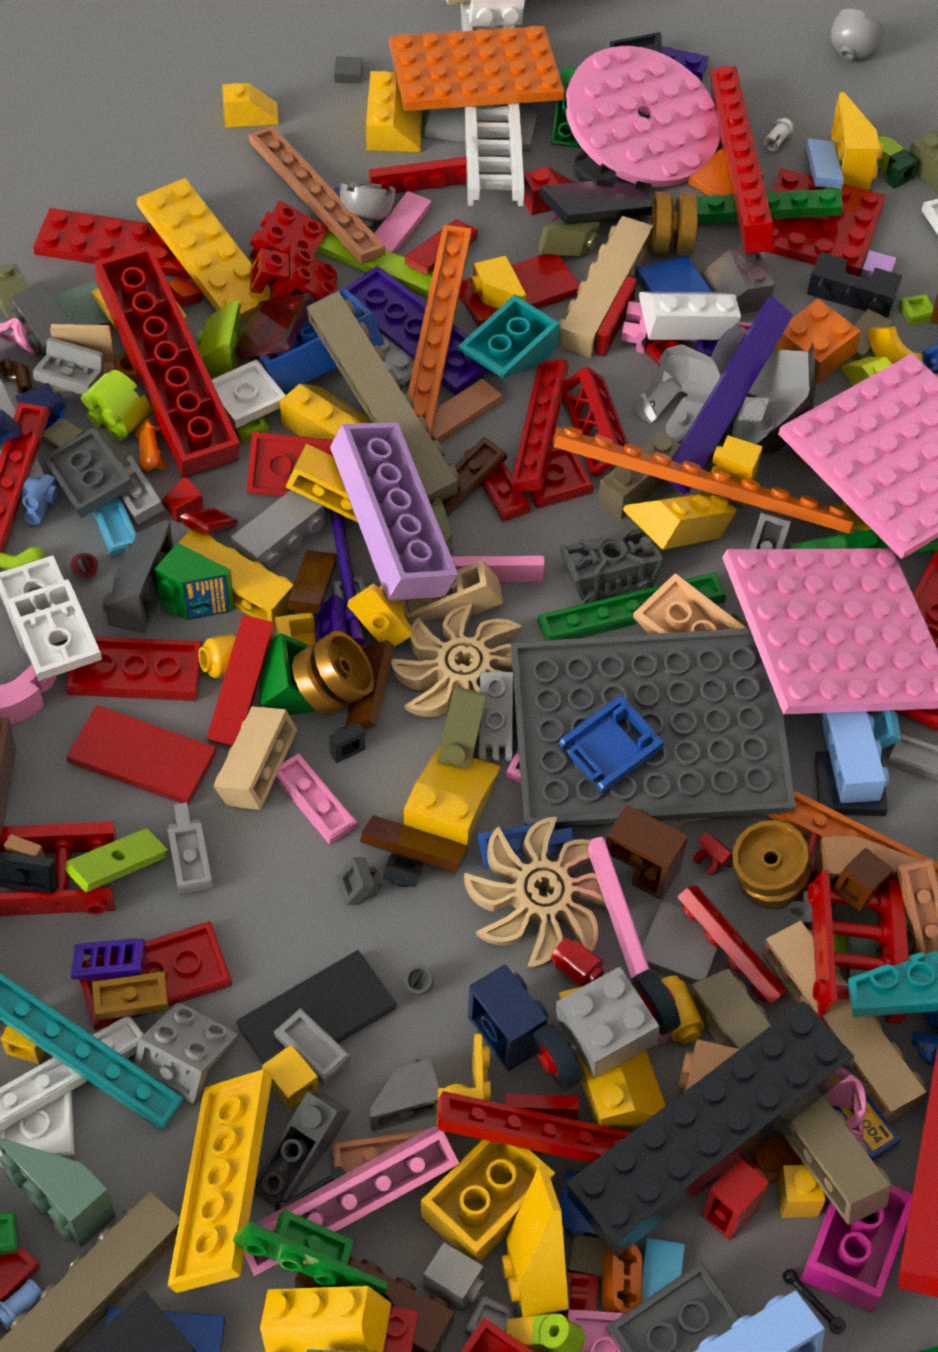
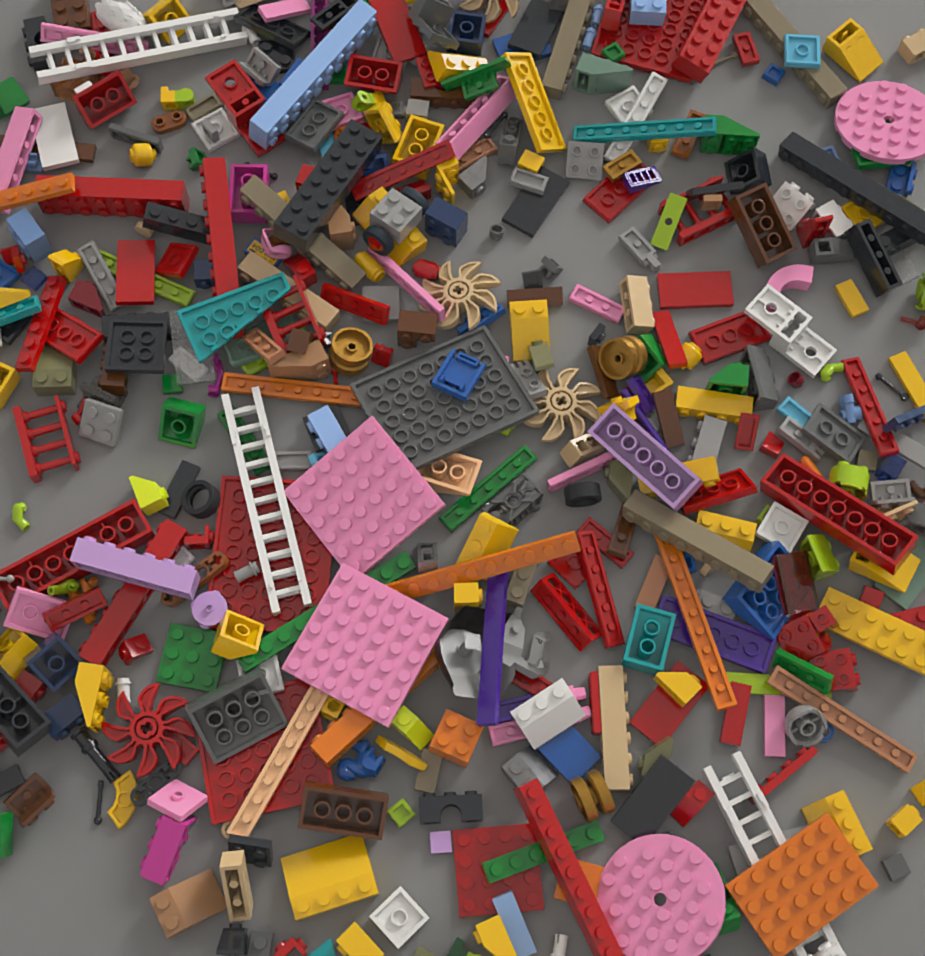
camera: 155 degrees right, 15 degrees up
(310, 93) = (904, 820): none -> yellow brick
(330, 241) = (804, 671): none -> green plate
(508, 518) = (582, 494): none -> black tyre

